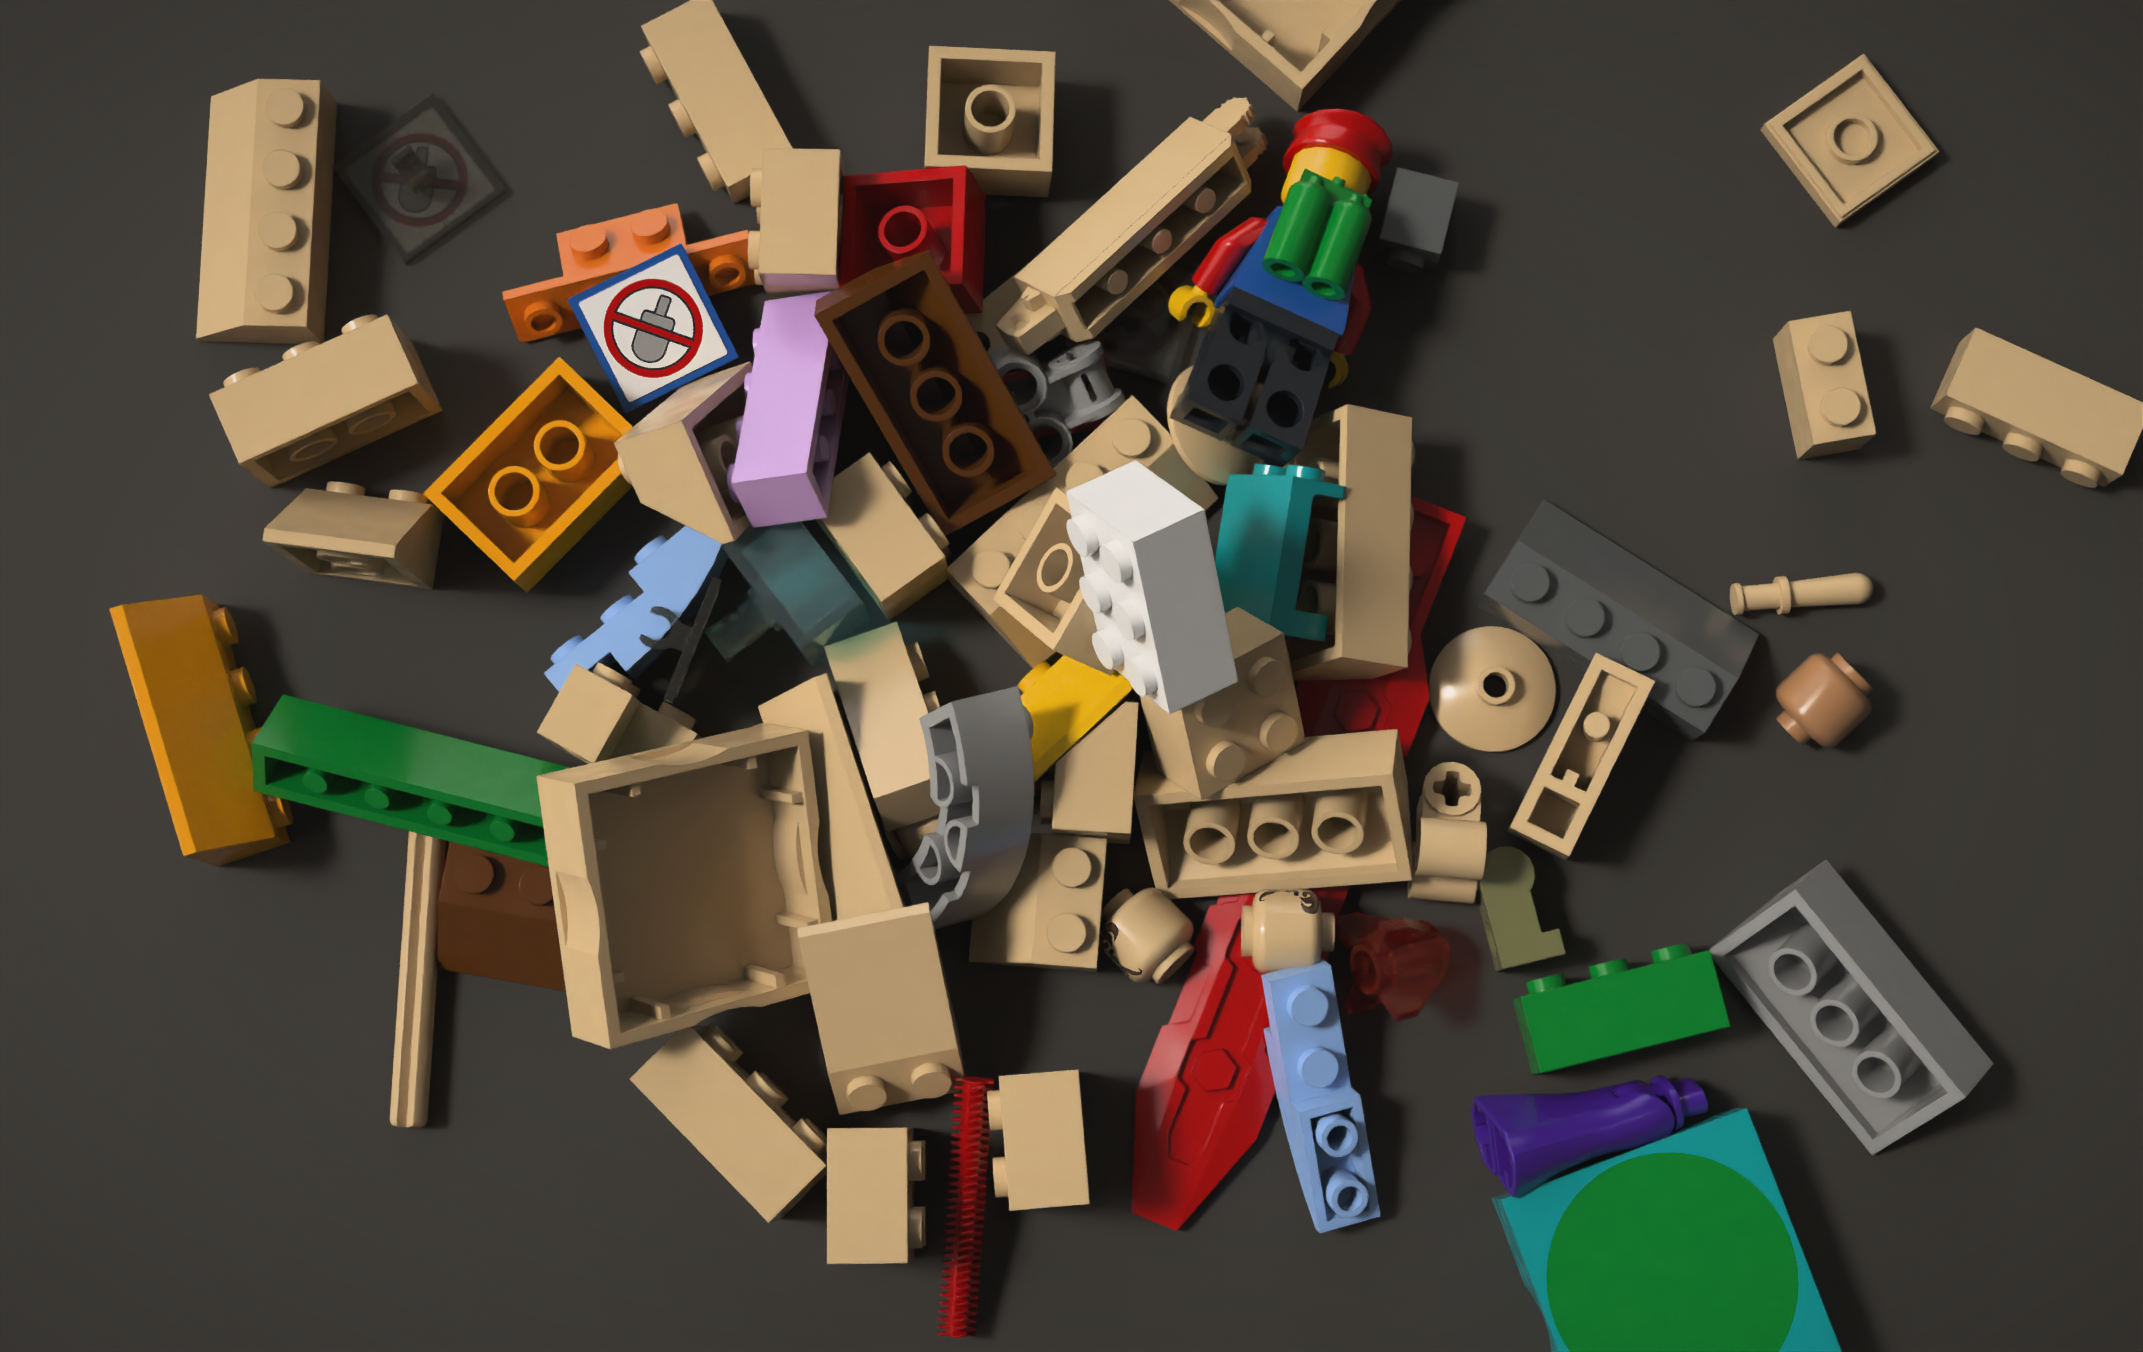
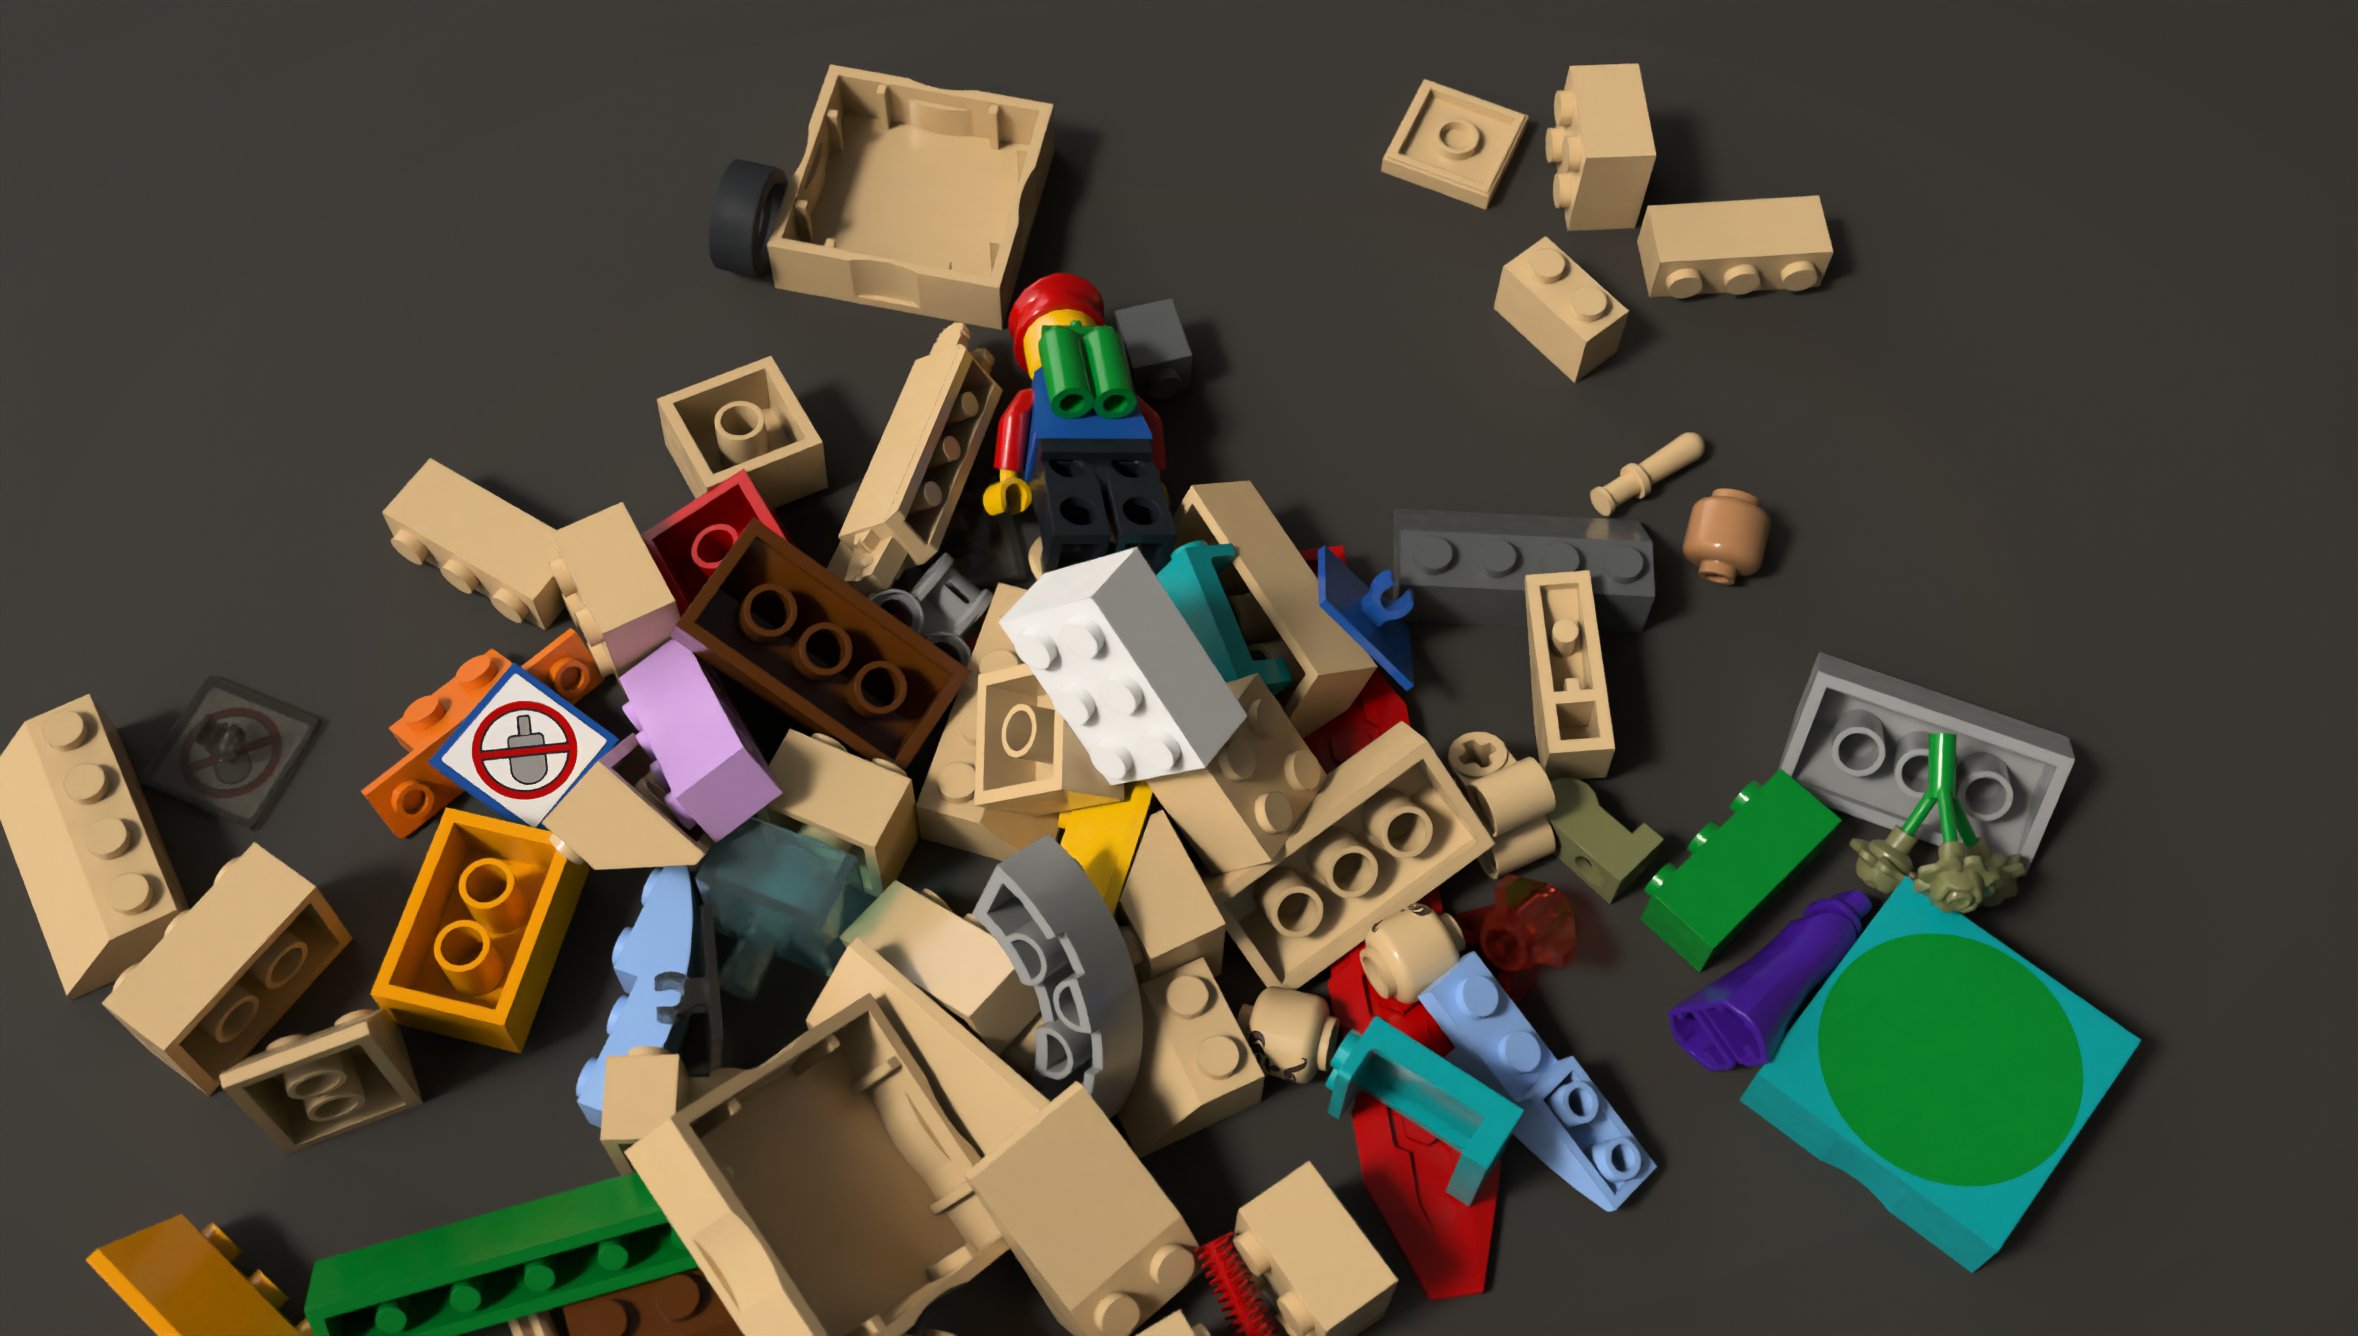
camera: 35 degrees left, 20 degrees down
(1245, 1120) = (1428, 1094): none -> teal panel
(1434, 606) = (1368, 615): none -> blue piece
(1473, 715) = (1456, 701): tan dish -> none
(1791, 1139) = (1965, 871): none -> olive plant
(1973, 237) = (1601, 147): none -> tan brick

